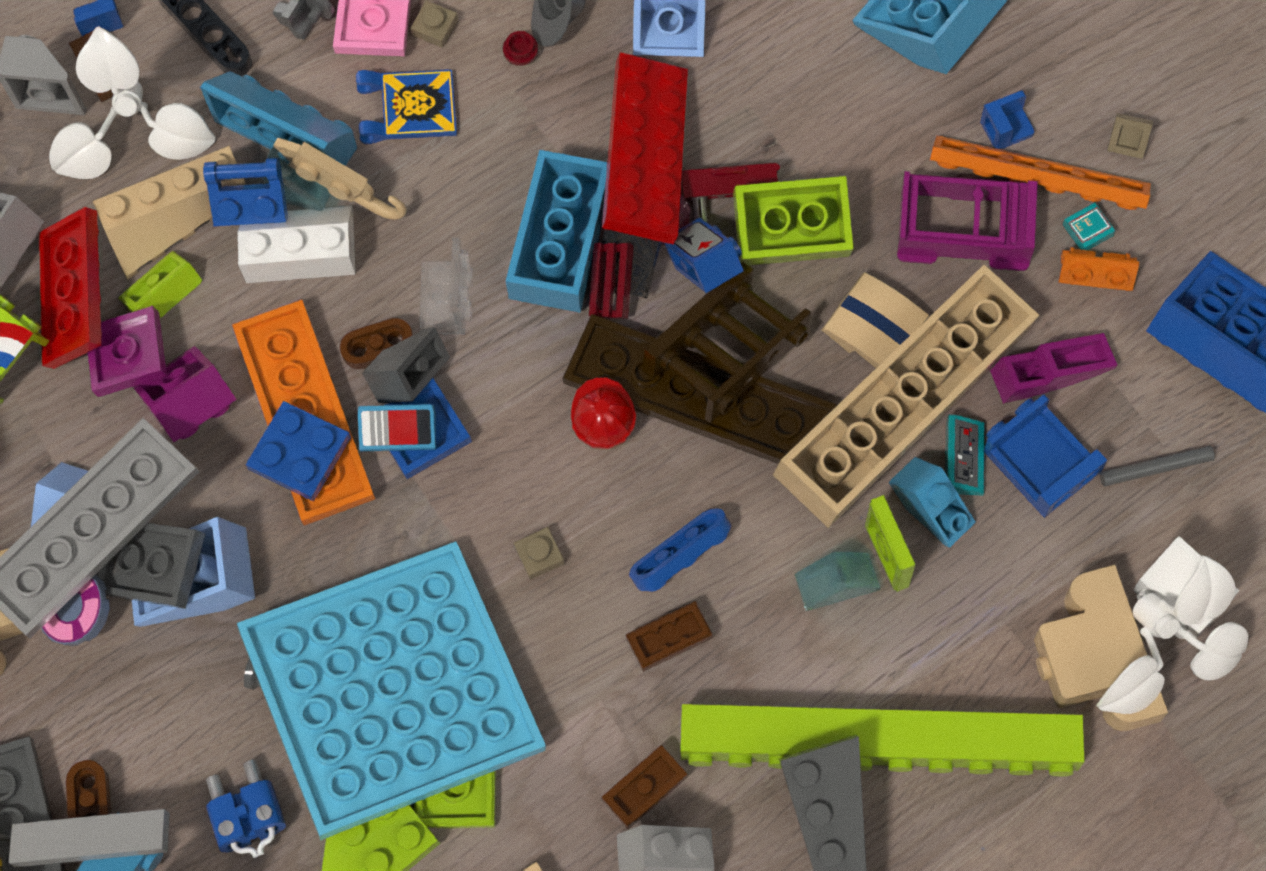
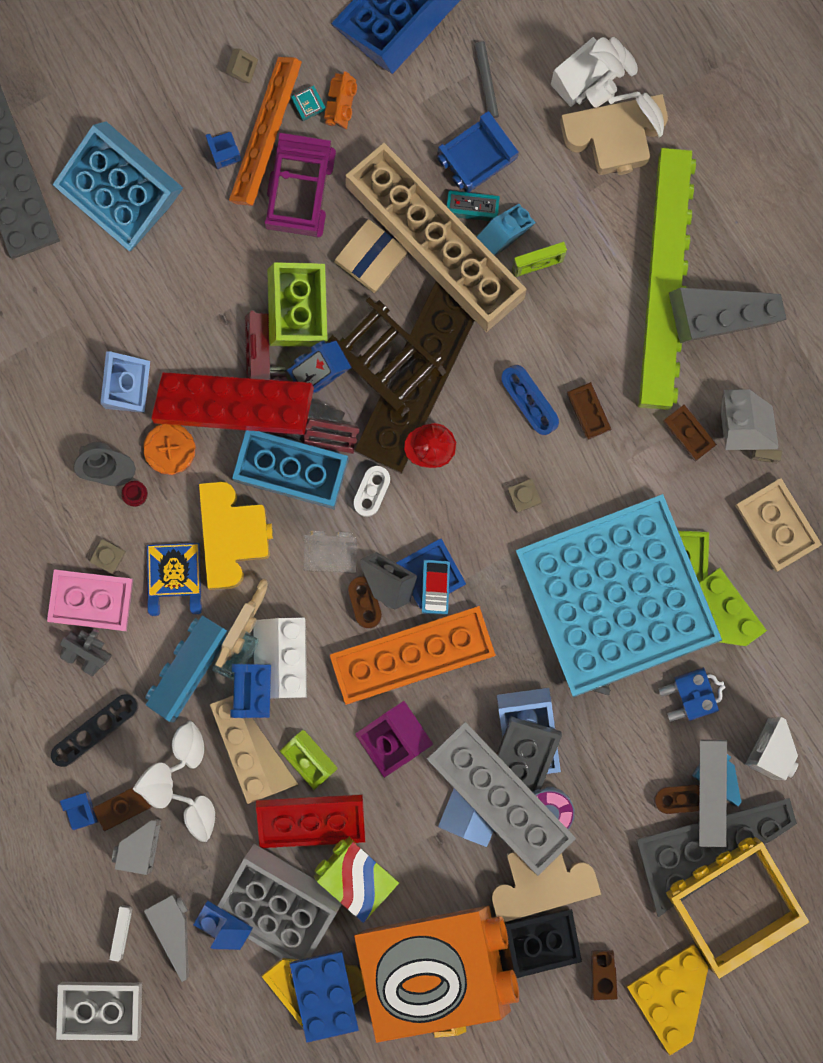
camera: 95 degrees left, 15 degrees up
(128, 352) = (362, 775): magenta plate -> none
(298, 451) = (446, 656): blue plate -> none
(466, 165) = (231, 534): none -> yellow brick
(537, 342) = (372, 492): none -> white plate
(582, 88) = (169, 449): none -> orange tile
(836, 579) = (555, 298): clear light blue slope -> none
(1052, 367) = (413, 138): magenta slope -> none

